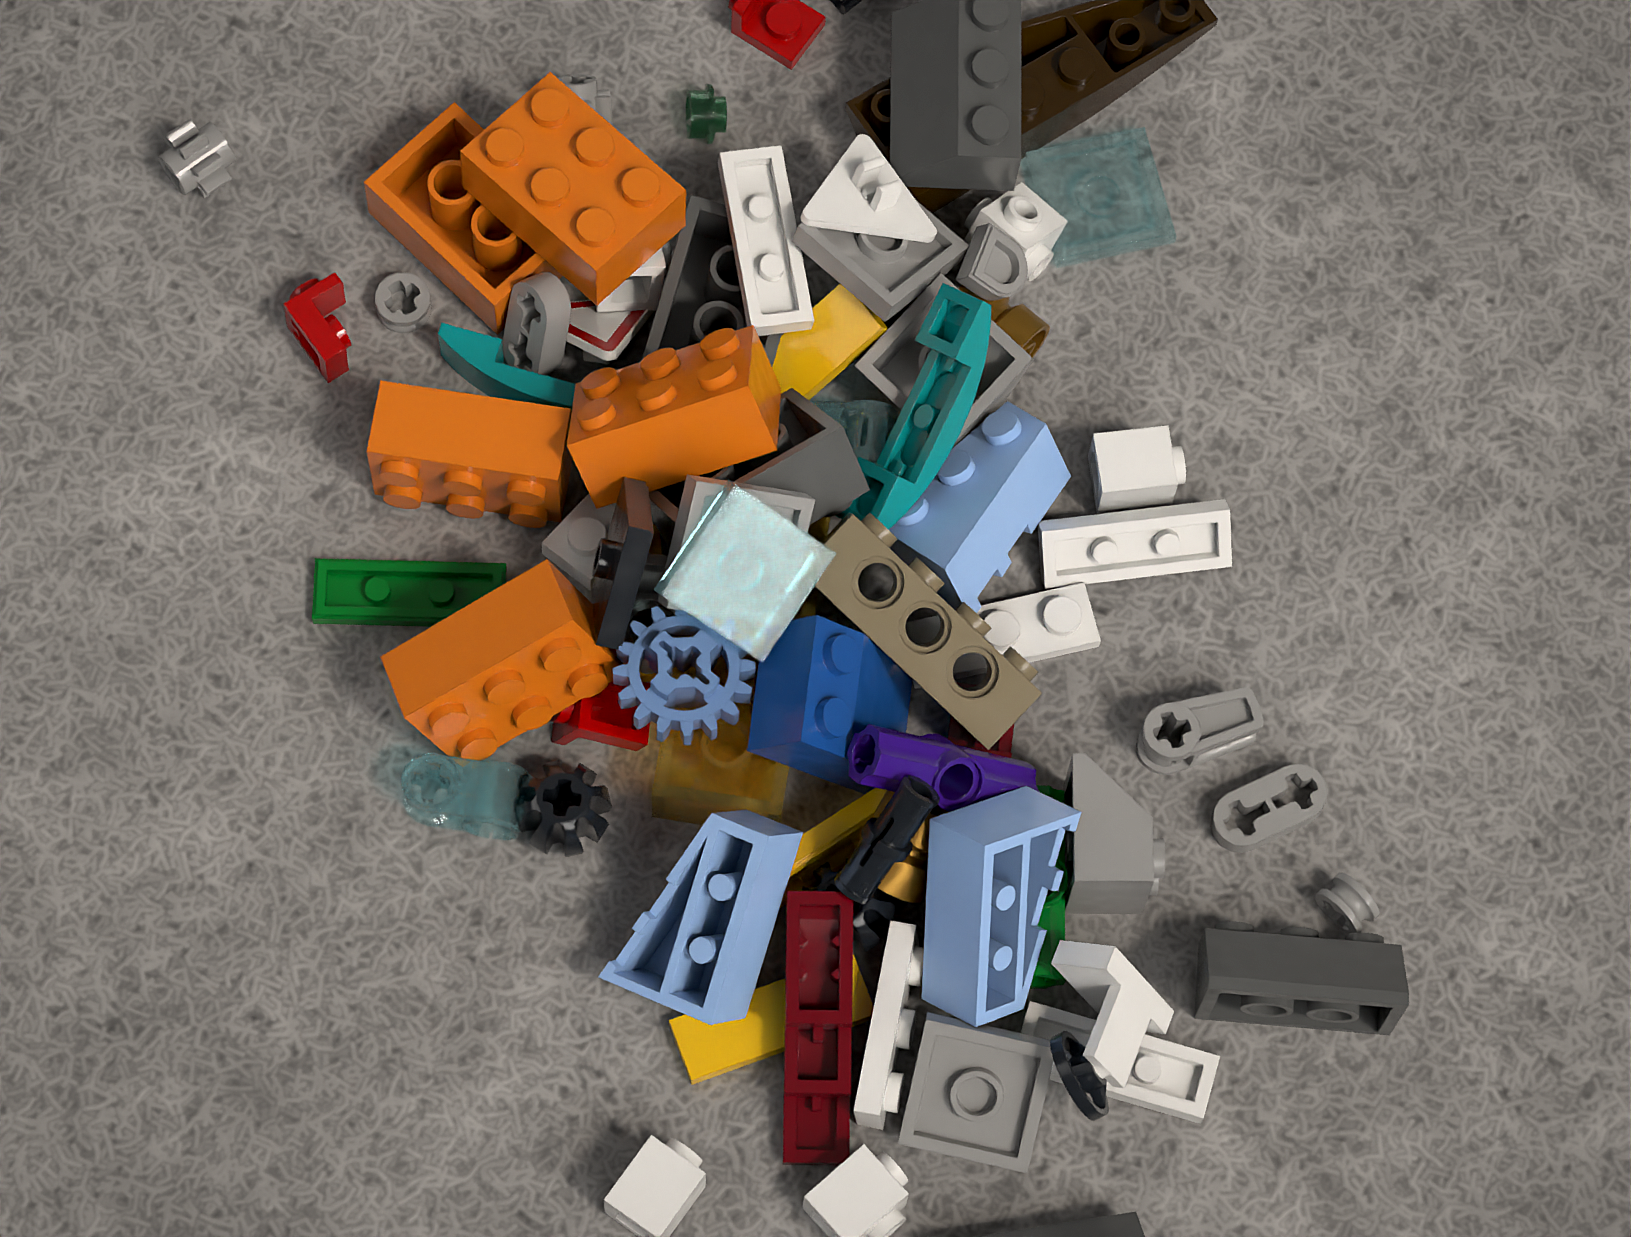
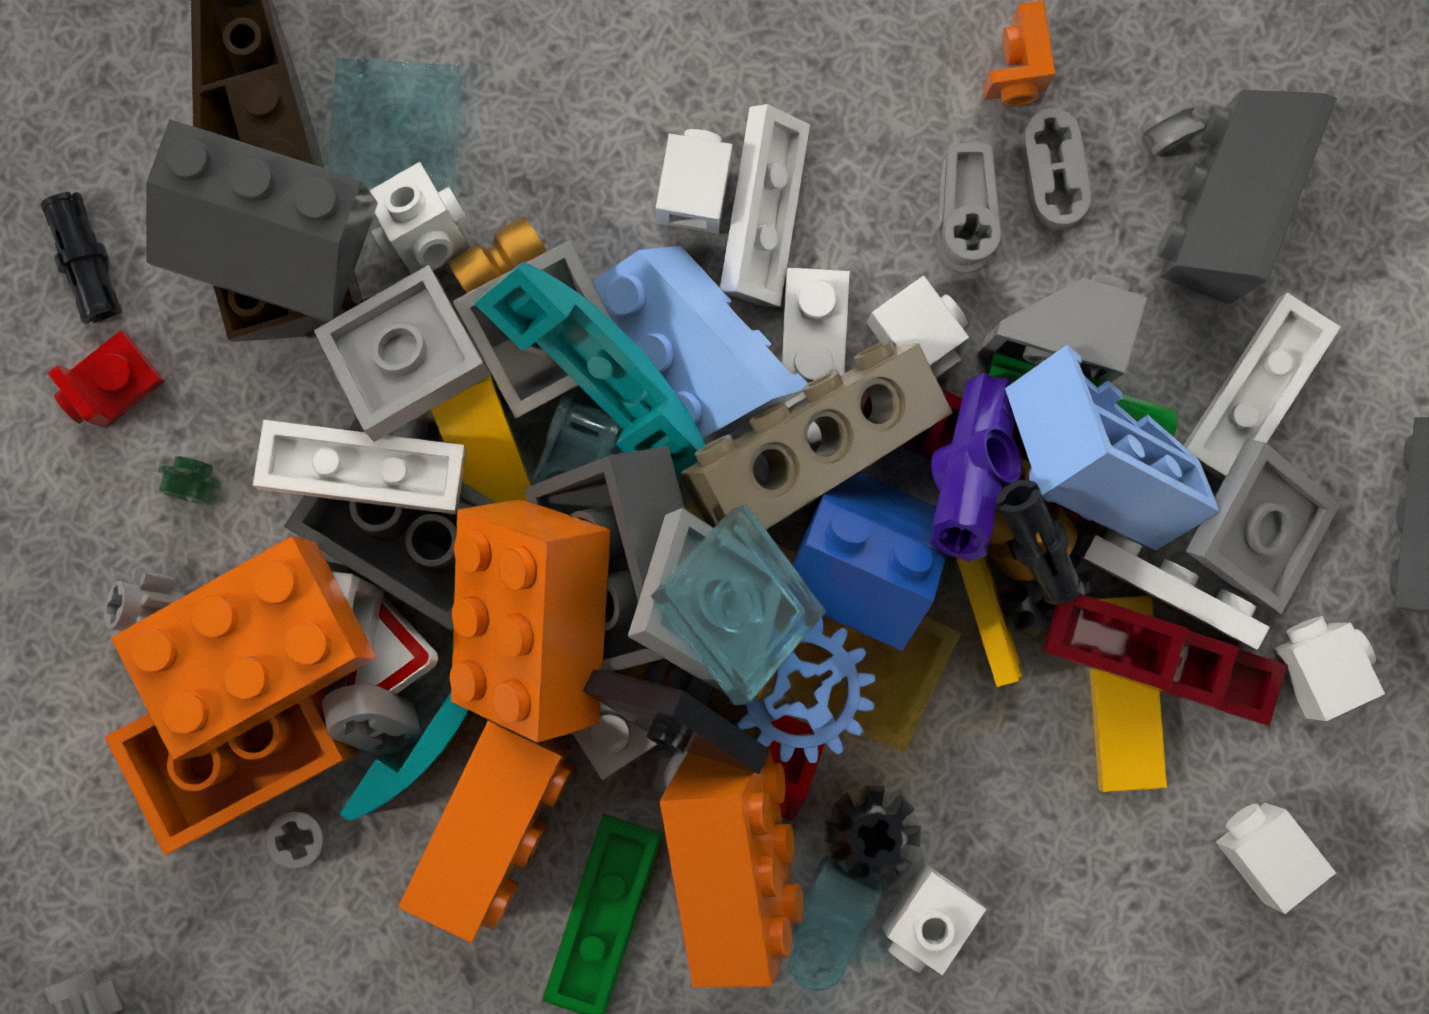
camera: 70 degrees left, 15 degrees up
(320, 337) = (312, 931): red bracket -> none
(495, 887) = (931, 921): none -> white brick
(713, 919) = (1053, 733): light blue wedge -> none
(867, 198) = (350, 350): white piece -> none
(993, 264) = (455, 247): light grey tile -> none
(1064, 718) = (923, 318): none -> white brick
(1126, 1012) = (1267, 383): white piece -> none
(1374, 745) = (1030, 49): none -> orange bracket

